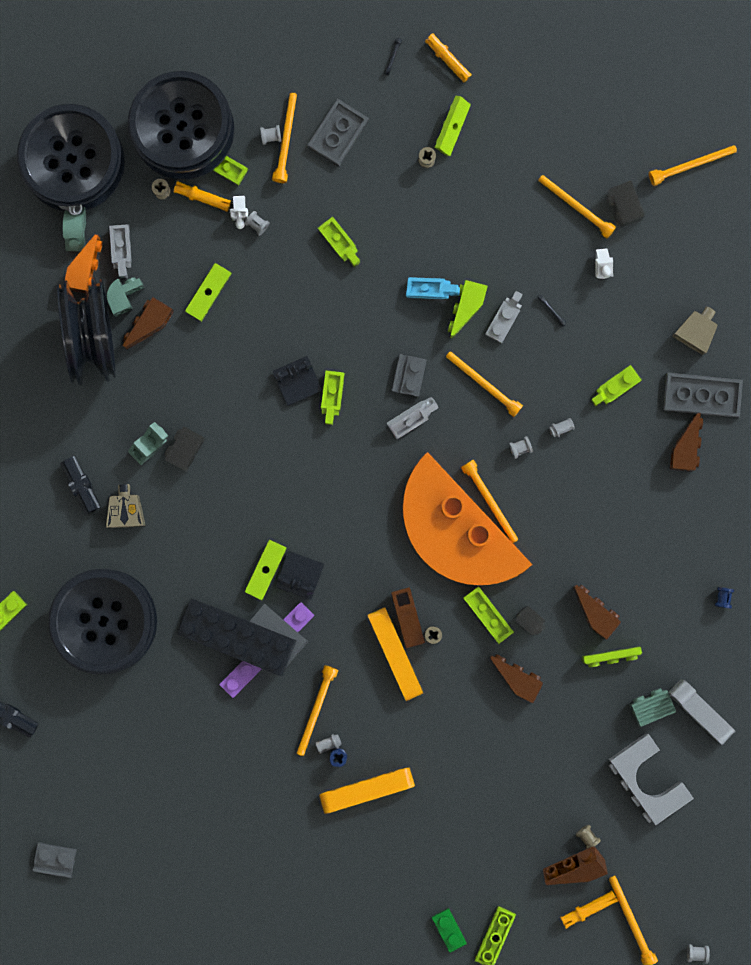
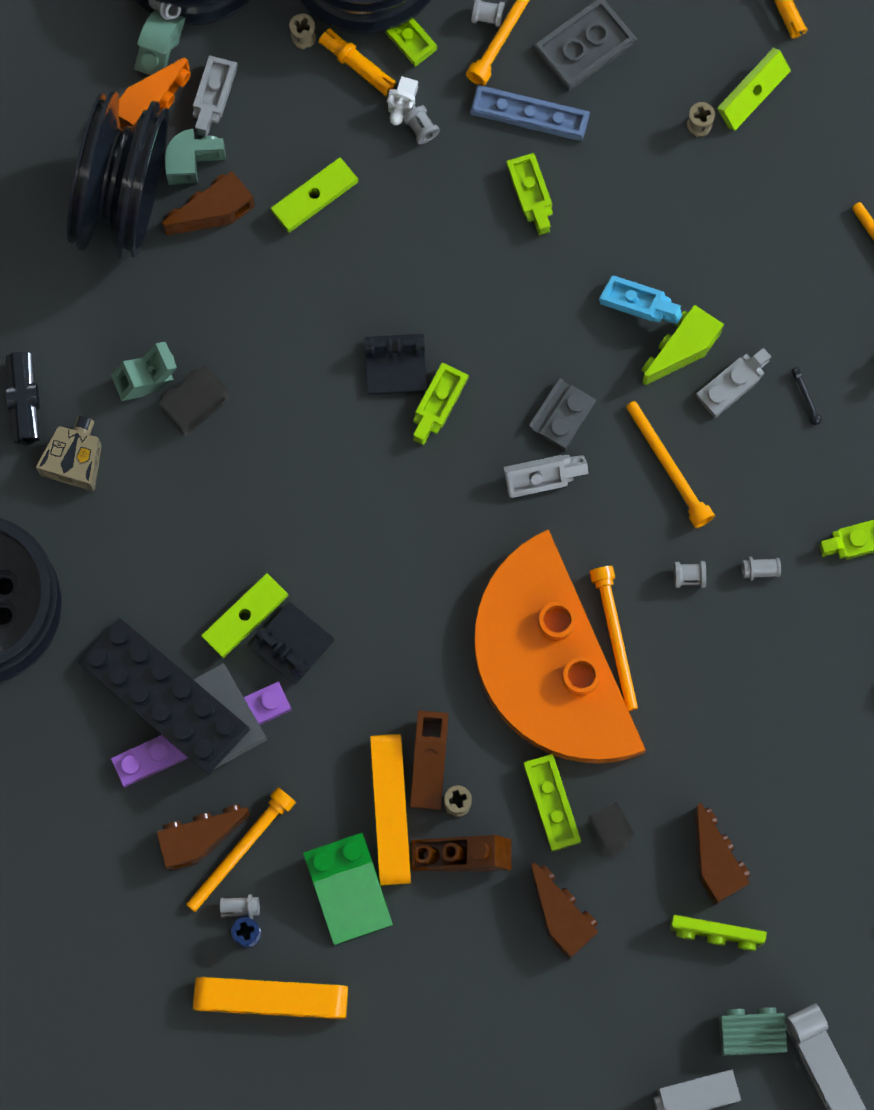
camera: 20 degrees right, 10 degrees down
(285, 718) = (193, 841): none -> reddish brown slope
(320, 190) = (530, 113): none -> sand blue tile
(388, 710) = (348, 889): none -> slope
(446, 665) = (462, 854): none -> reddish brown slope

